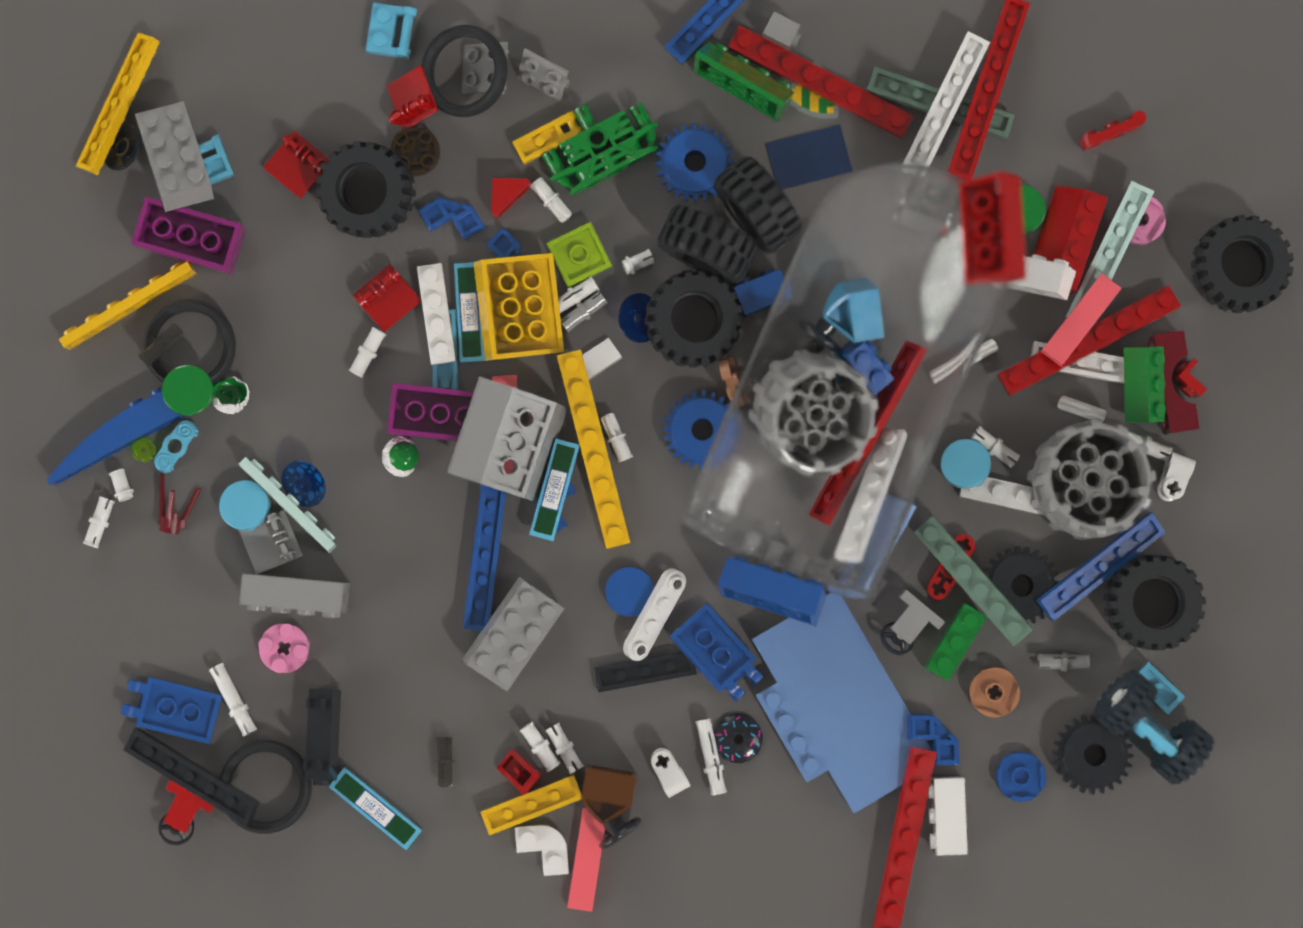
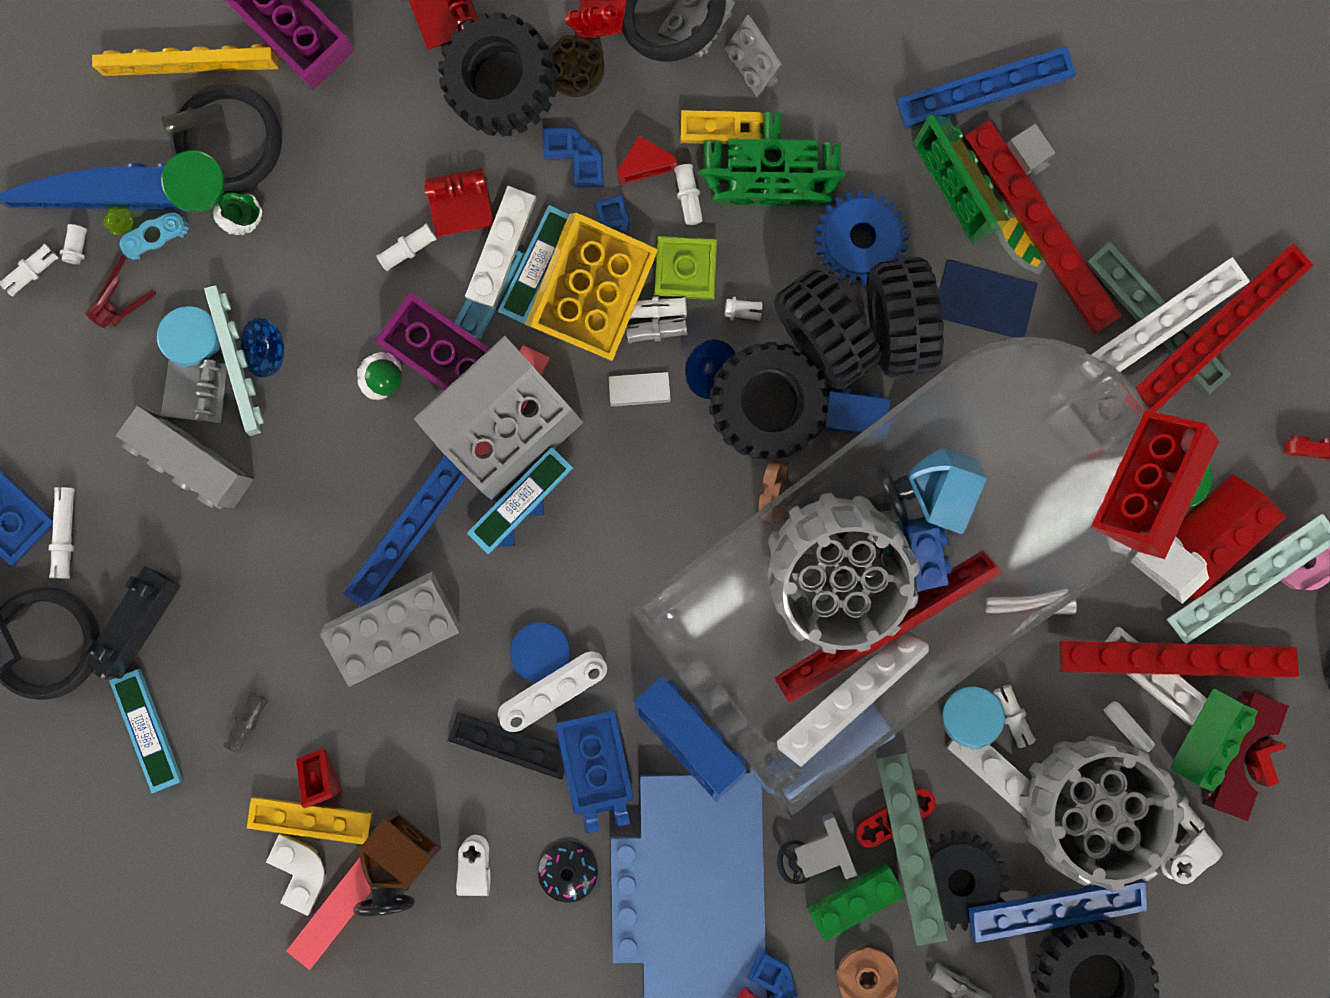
camera: 35 degrees right, 0 degrees up
(278, 661) = (133, 497): bright pink plate -> none
(540, 746) = (353, 763): white pin -> none
(564, 748) = (378, 779): white pin -> none
(593, 449) = (585, 480): yellow plate -> none
(616, 437) = (617, 481): white axle -> none
(682, 420) = (694, 504): blue gear -> none
(711, 758) = (527, 877): white pin -> none
(1081, 320) = (1184, 633): coral tile -> none

